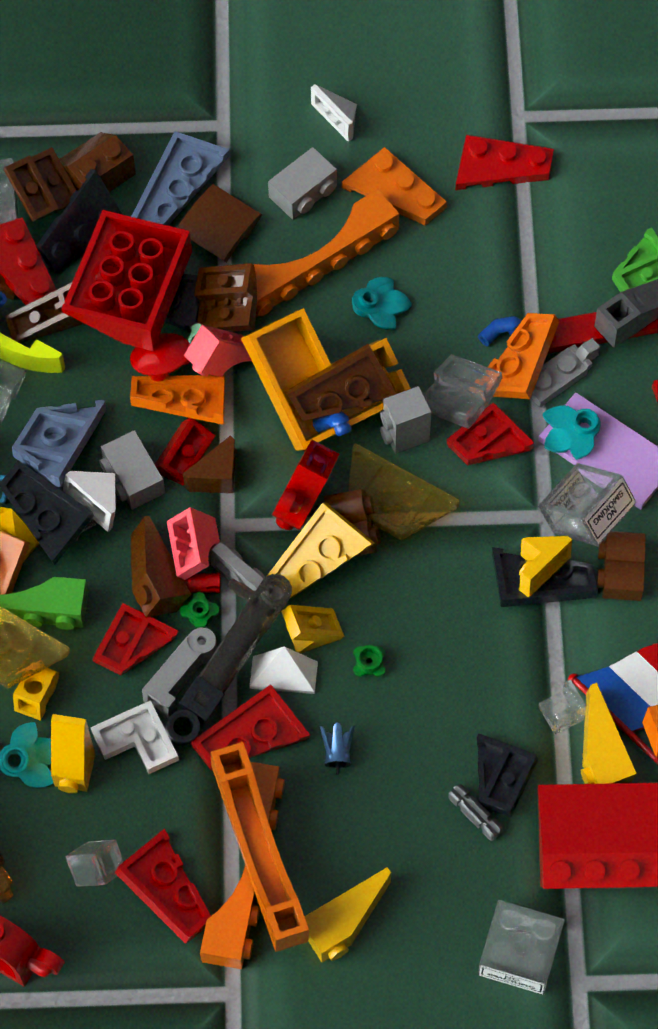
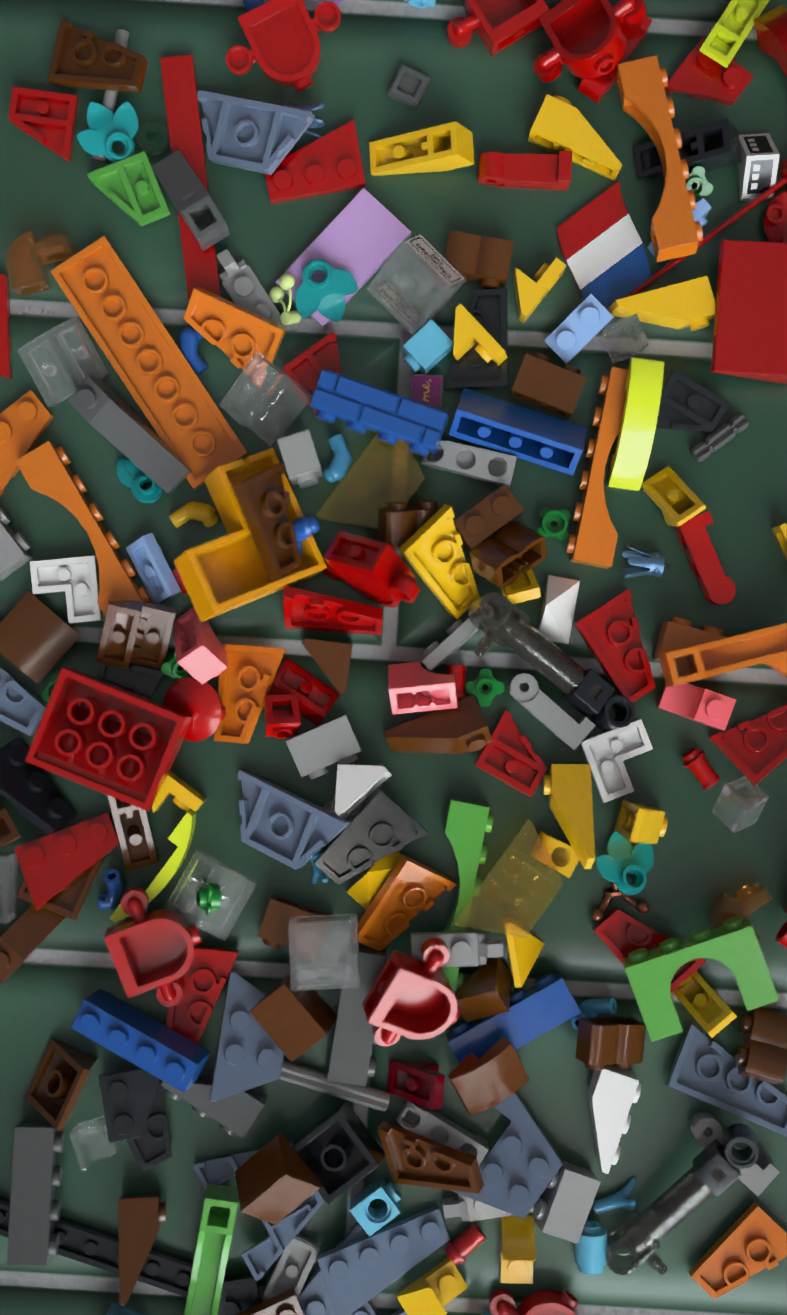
camera: 85 degrees left, 25 degrees up
(84, 346) = (185, 795): none -> yellow slope
(93, 692) = (572, 805): none -> yellow slope
(131, 821) = (700, 767): none -> red pin
(151, 426) = (281, 723): none -> red brick
(196, 812) = (697, 704): none -> coral arch
(259, 460) = (326, 613): none -> red wing
(276, 243) = (76, 578): none -> white plate
(307, 300) = (153, 569): none -> light blue plate
(335, 614) = (508, 554): none -> reddish brown brick
(346, 805) = (704, 561): none -> red leg
(347, 340) = (196, 511): none -> yellow arm
(362, 696) = (595, 533): none -> orange arch
(367, 593) = (487, 517): none -> reddish brown brick
(406, 765) = (672, 497): none -> yellow slope
(412, 463) = (340, 462): none -> dark azure arm
(419, 273) = (128, 432): none -> dark grey slope
(420, 579) = (472, 462): none -> light grey leg
(456, 613) = (518, 431): none -> blue brick
(458, 481) = (378, 411): none -> blue brick
(476, 225) = (62, 360): none -> clear slope
(476, 716) = (637, 424): none -> neon yellow slope
(485, 293) = (148, 360): none -> orange plate
(487, 533) = (427, 389): none -> magenta tile
(506, 640) = (548, 385): none -> reddish brown brick
(527, 522) = (426, 348): none -> medium azure brick
(562, 396) = (277, 294): none -> yellowish green piece
(564, 188) = (28, 259): none -> clear orange brick
(567, 664) = (579, 328): none -> light blue plate
(594, 617) = (529, 293): none -> yellow slope

